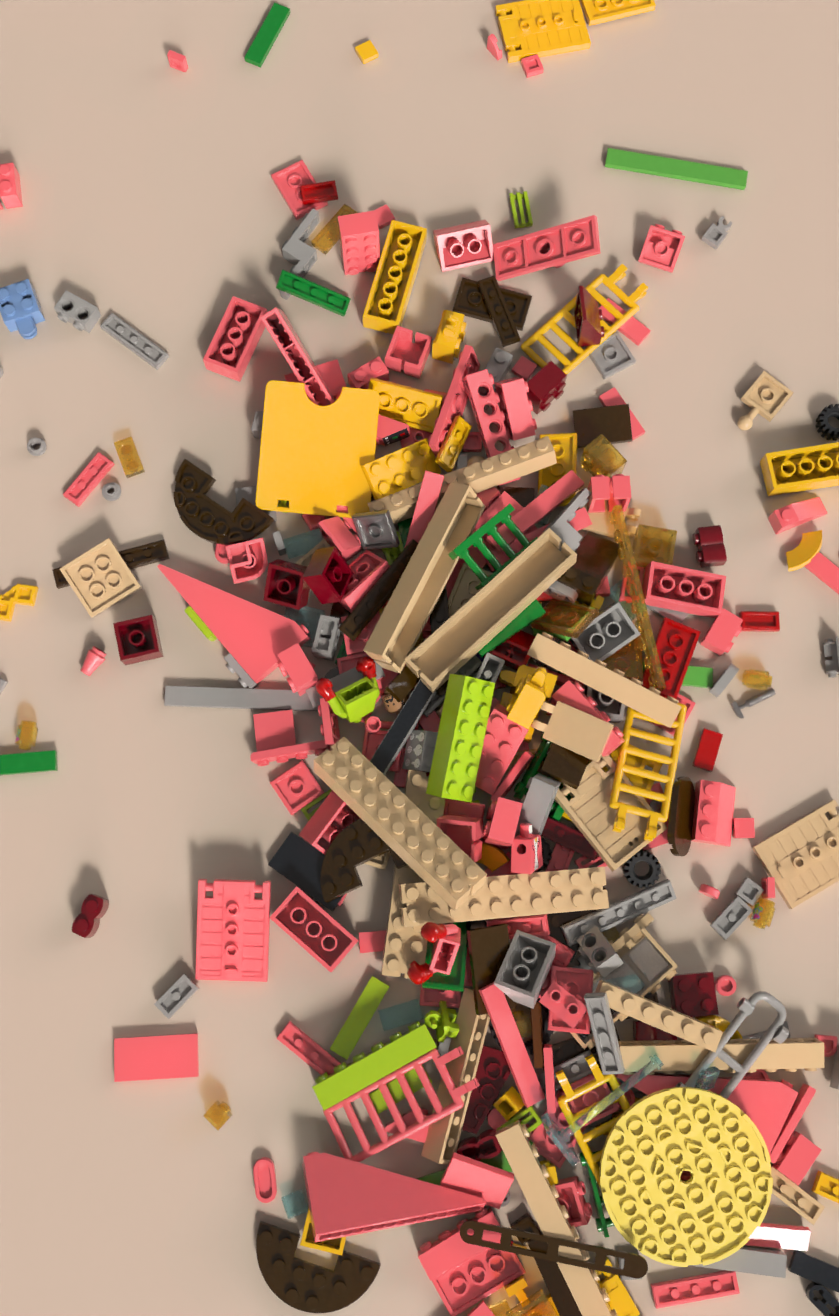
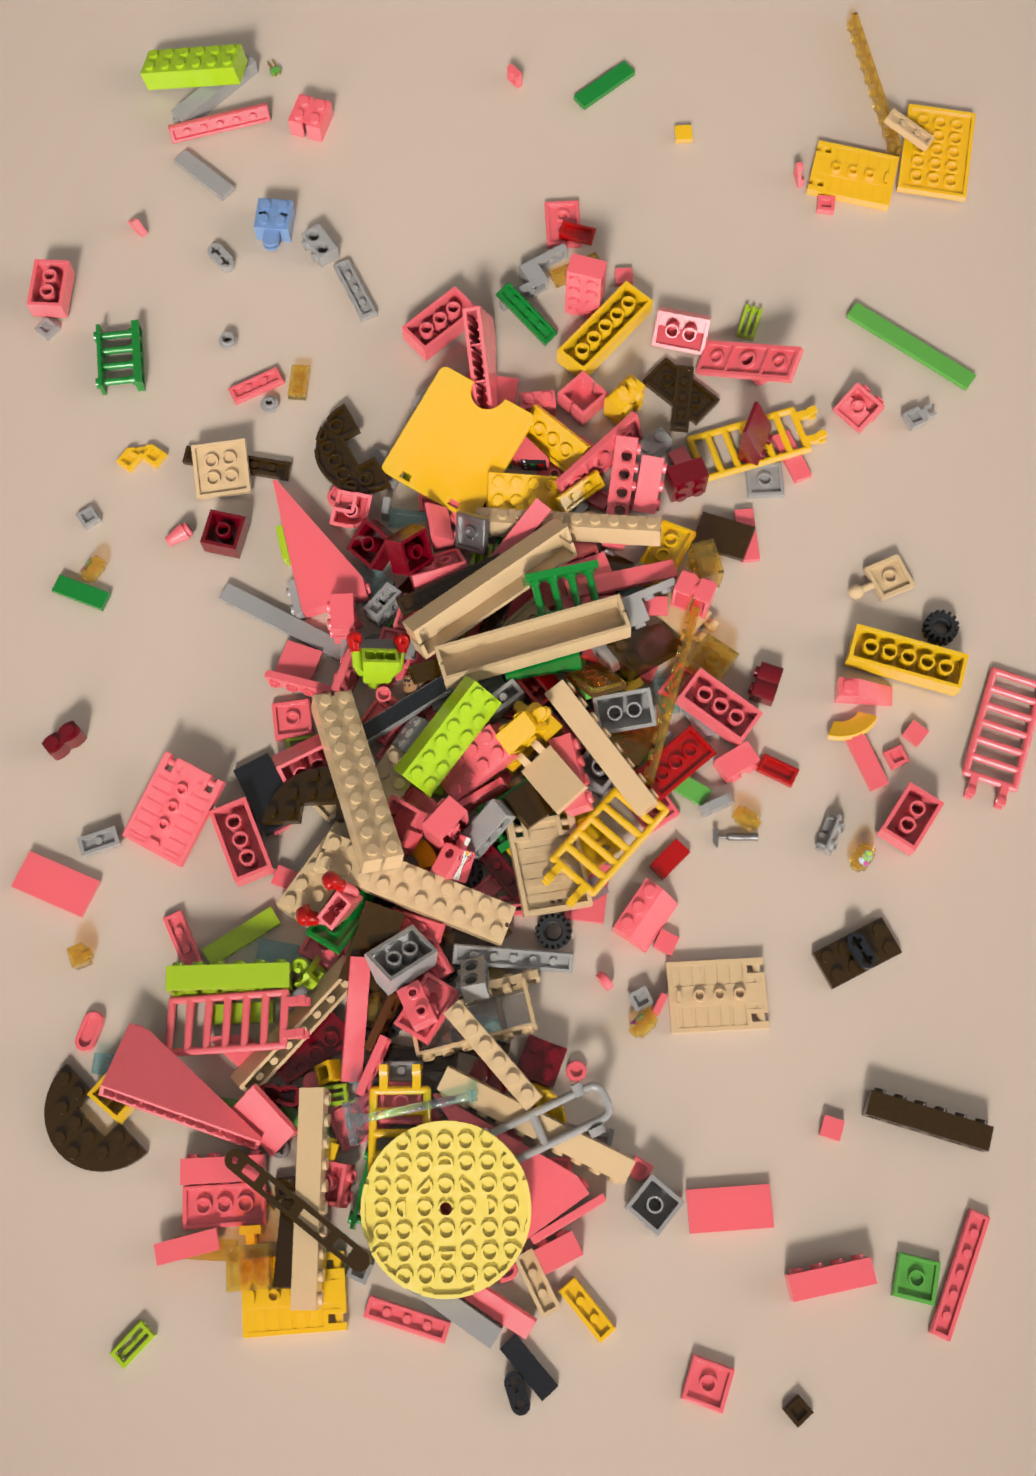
camera: 30 degrees right, 5 degrees down
(604, 1033) = (437, 1046): light grey tile -> none
(681, 816) = (612, 902): dark brown tile -> none
(707, 1078) = (510, 1134): clear light blue tile -> none
(731, 917) = (612, 1014): light grey plate -> none

